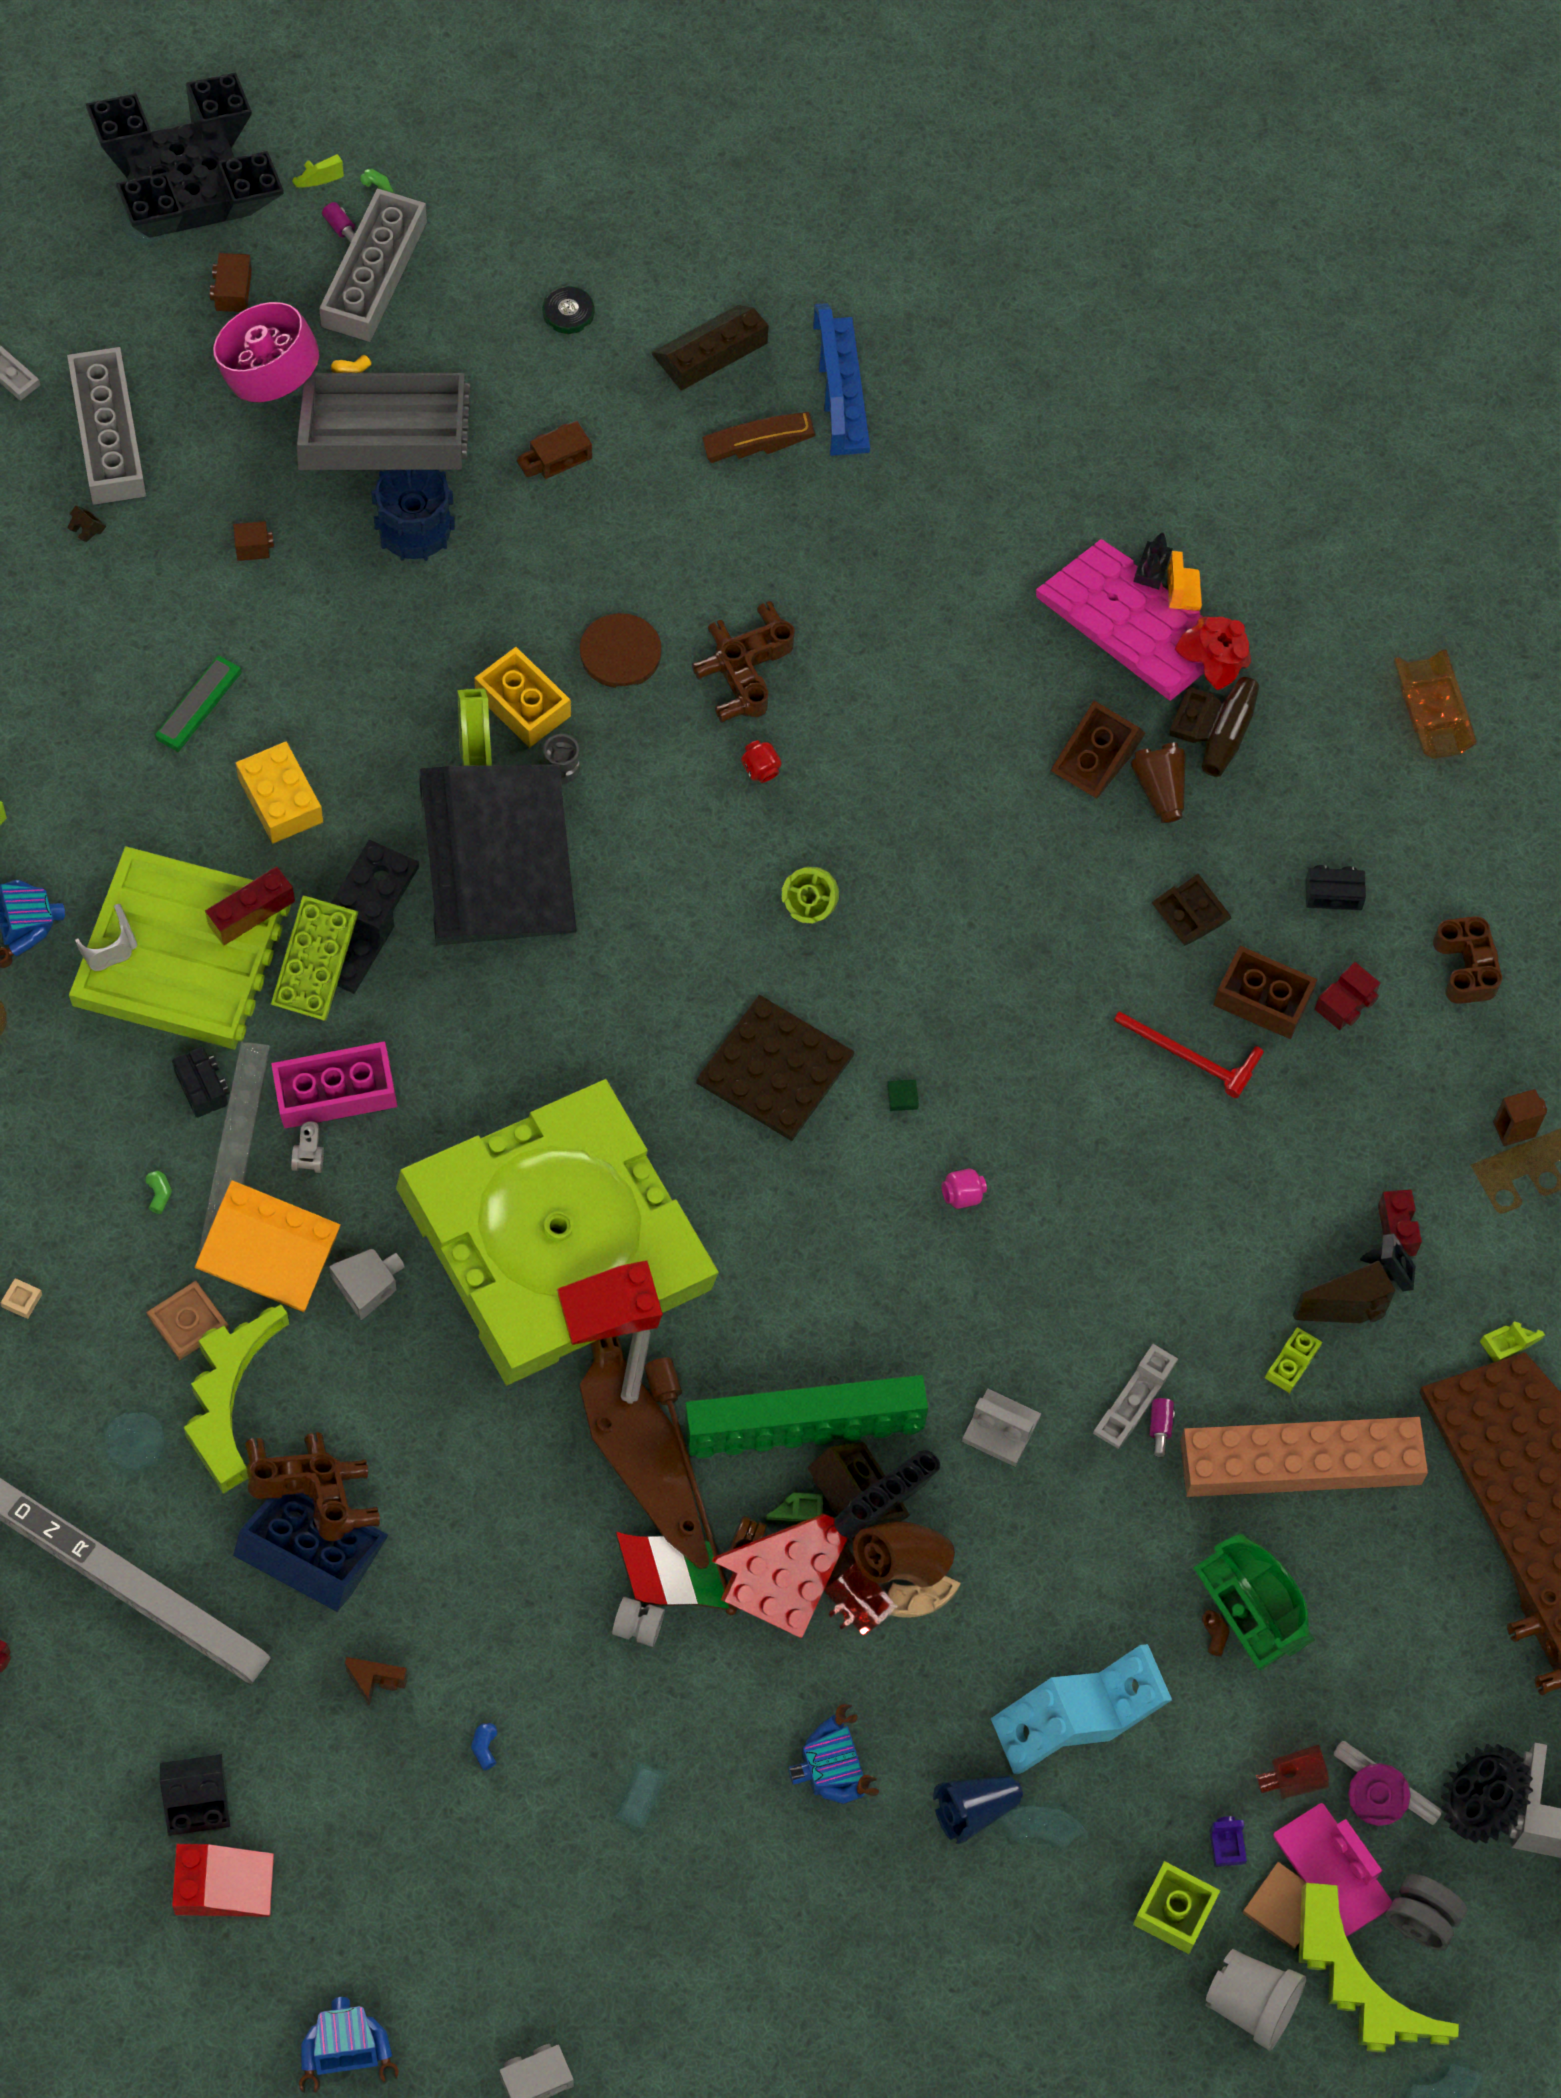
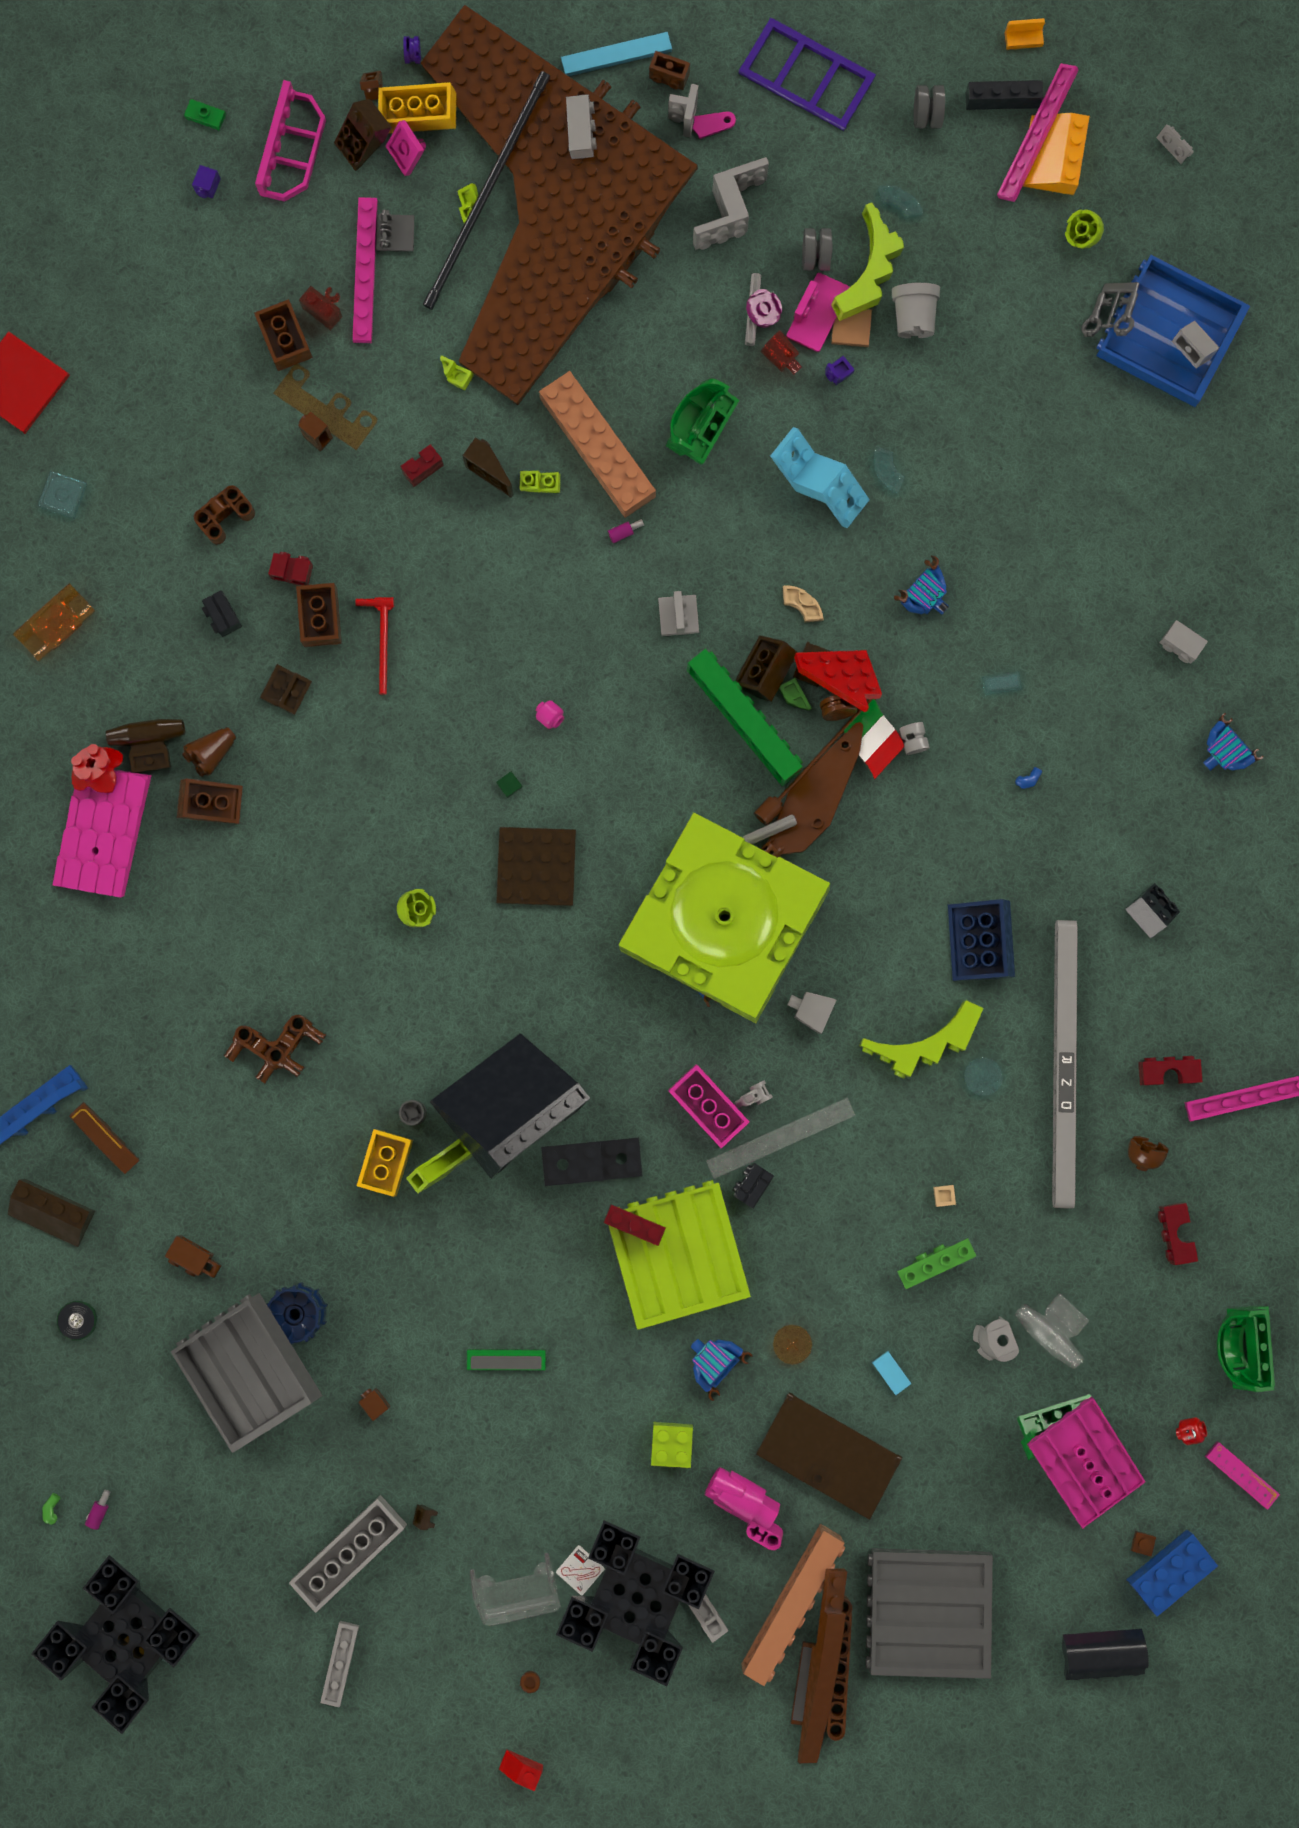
camera: 120 degrees left, 20 degrees up
(115, 953) = (707, 1283): light grey helmet -> none
(162, 1190) = (829, 1164): bright green arm -> none
(185, 1319) = (896, 1095): medium nougat tile -> none
(222, 1881) = (1187, 865): slope -> none
(232, 282) = (189, 1549): reddish brown piece -> none
(259, 337) = (233, 1500): dark pink wheel -> none
(267, 1246) = (830, 1076): light orange slope -> none
(279, 792) = (539, 1267): yellow brick -> none
(314, 958) = (637, 1169): lime tile -> none
(316, 1476) = (950, 969): reddish brown pin -> none
(320, 173) = (69, 1552): lime slope -> none
(344, 366) = (208, 1429): yellow arm -> none
(367, 1673) = (1032, 863): reddish brown slope -> none
(373, 265) = (120, 1466): light grey brick -> none
(611, 1303) = (757, 853): red slope -> none
(620, 650) = (311, 1128): reddish brown tile -> none
(761, 761) = (340, 994): red head -> none
(859, 1600) = (830, 628): clear red brick -> none
(887, 1493) = (766, 643): black beam -> none
(903, 1553) = (794, 615): reddish brown brick -> none
(974, 1804) = (902, 506): dark blue cone -> none
(1136, 1397) = (618, 553): light grey slope -> none
(1153, 562) = (53, 842): black tile -> none
(1176, 1907) = (892, 375): lime brick -> none
(1183, 584) = (58, 816): light orange panel -> none
(1218, 1631) = (724, 437): reddish brown arm -> none
(1395, 1261) = (451, 454): black tile -> none
(1486, 1793) = (723, 262): black gear -> none

